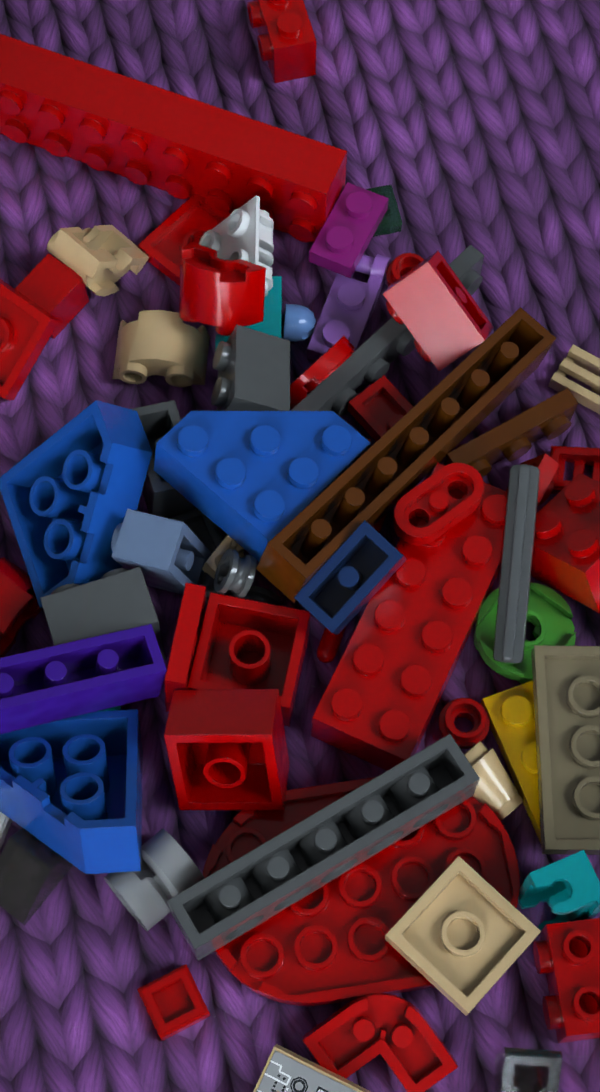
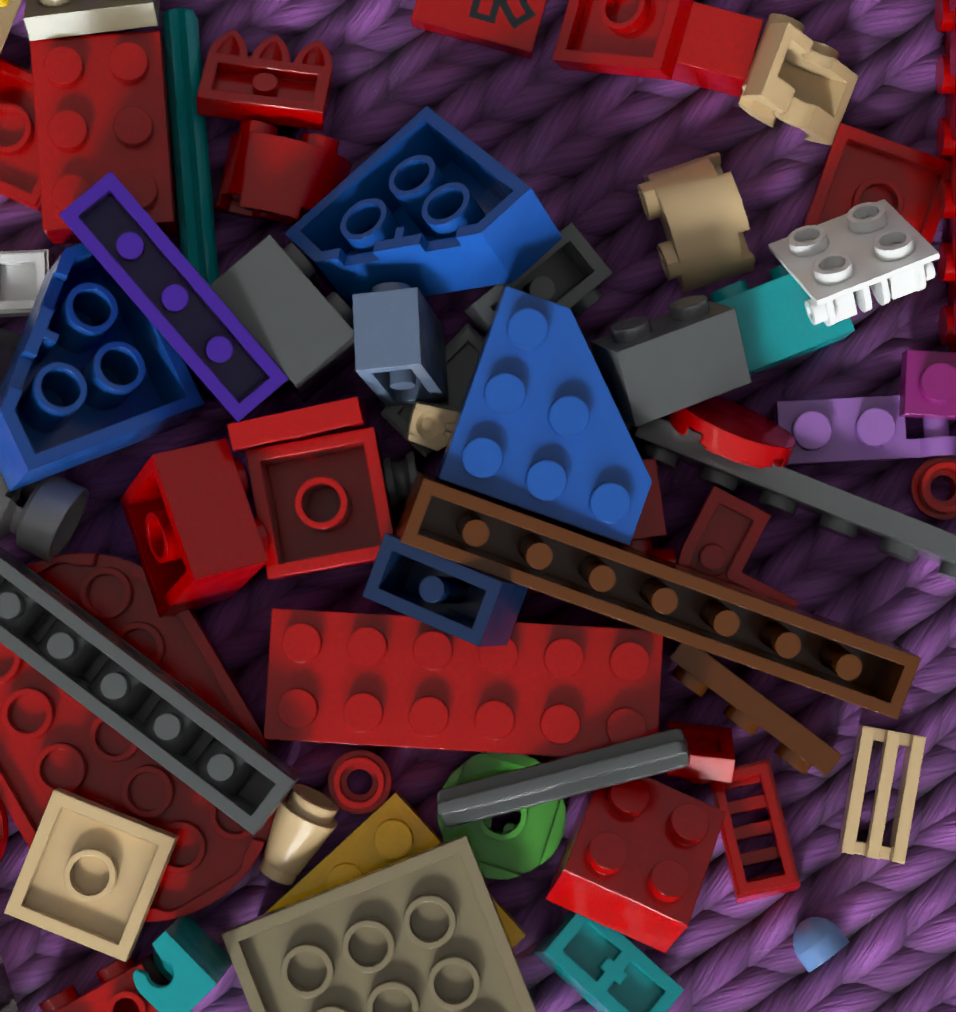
camera: 75 degrees right, 20 degrees up
(220, 290) = (777, 264): red cylinder -> none
(235, 573) = (407, 446): dark grey bush -> none
(298, 323) = (811, 375): medium blue hinge -> none
(435, 505) = (590, 657): red plate -> none
(437, 311) = (870, 554): brick -> none

